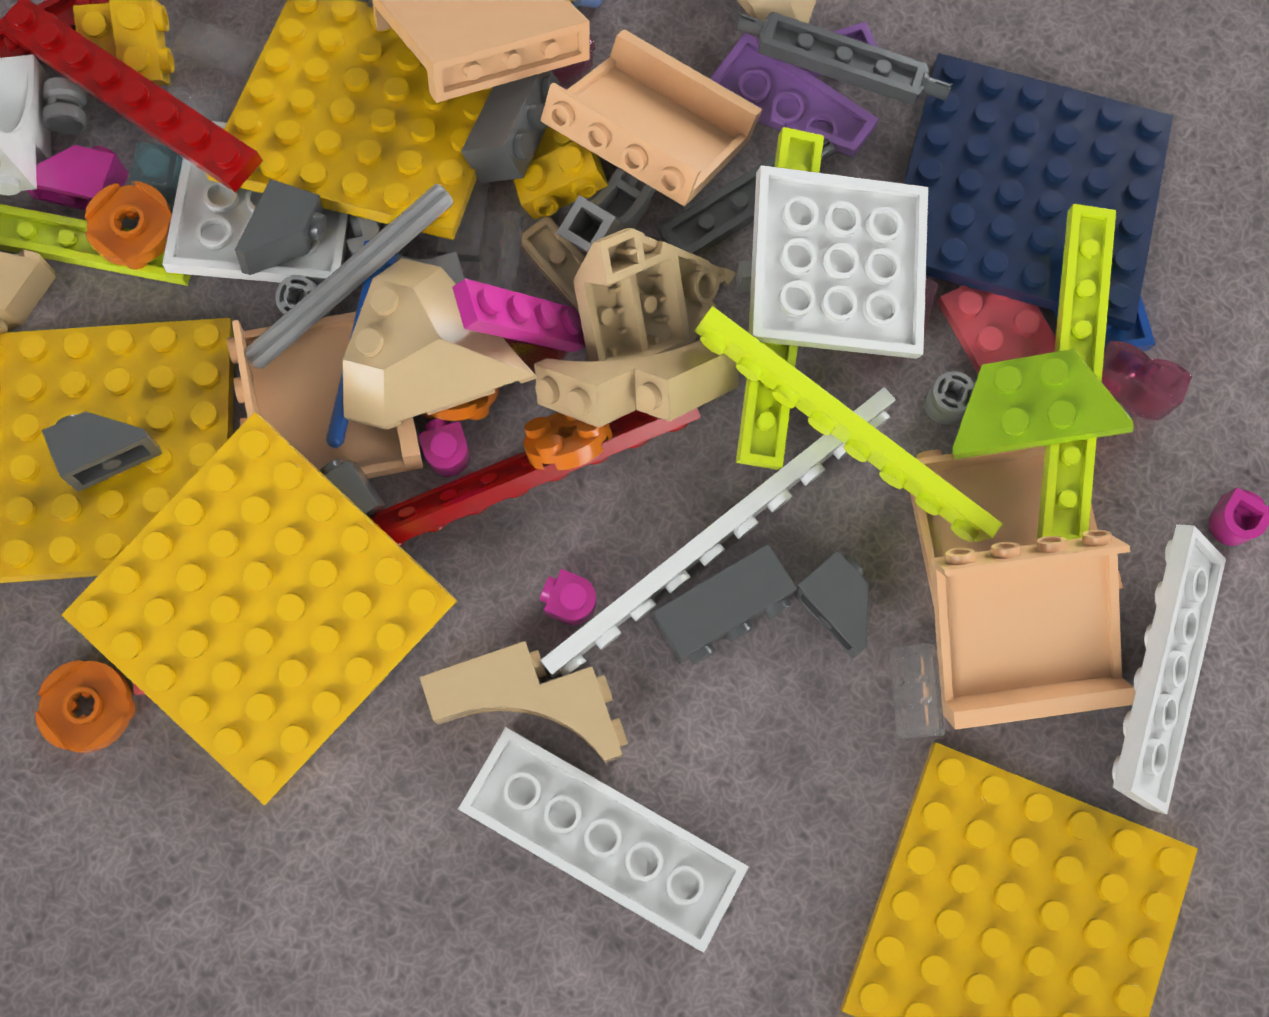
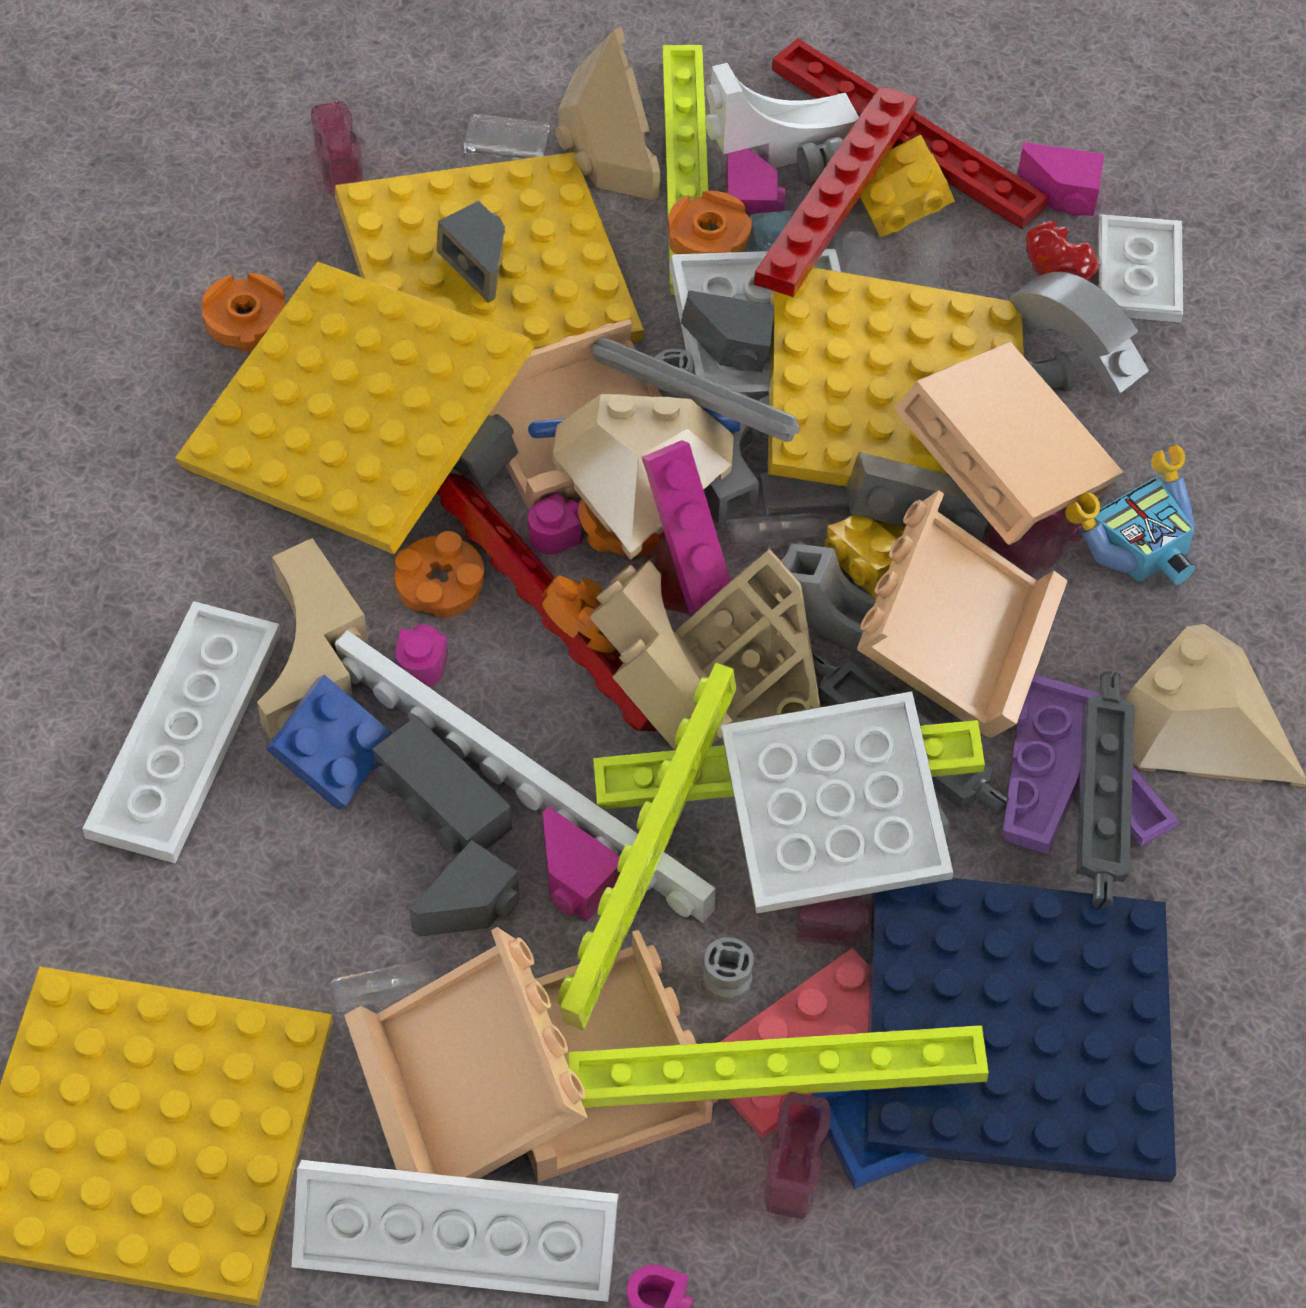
camera: 80 degrees right, 20 degrees down
(497, 576) = (442, 553): none -> orange plate
(657, 698) = (329, 742): none -> blue plate
(828, 502) = (576, 866): none -> dark pink slope
(1036, 405) = (720, 1018): lime wing -> none

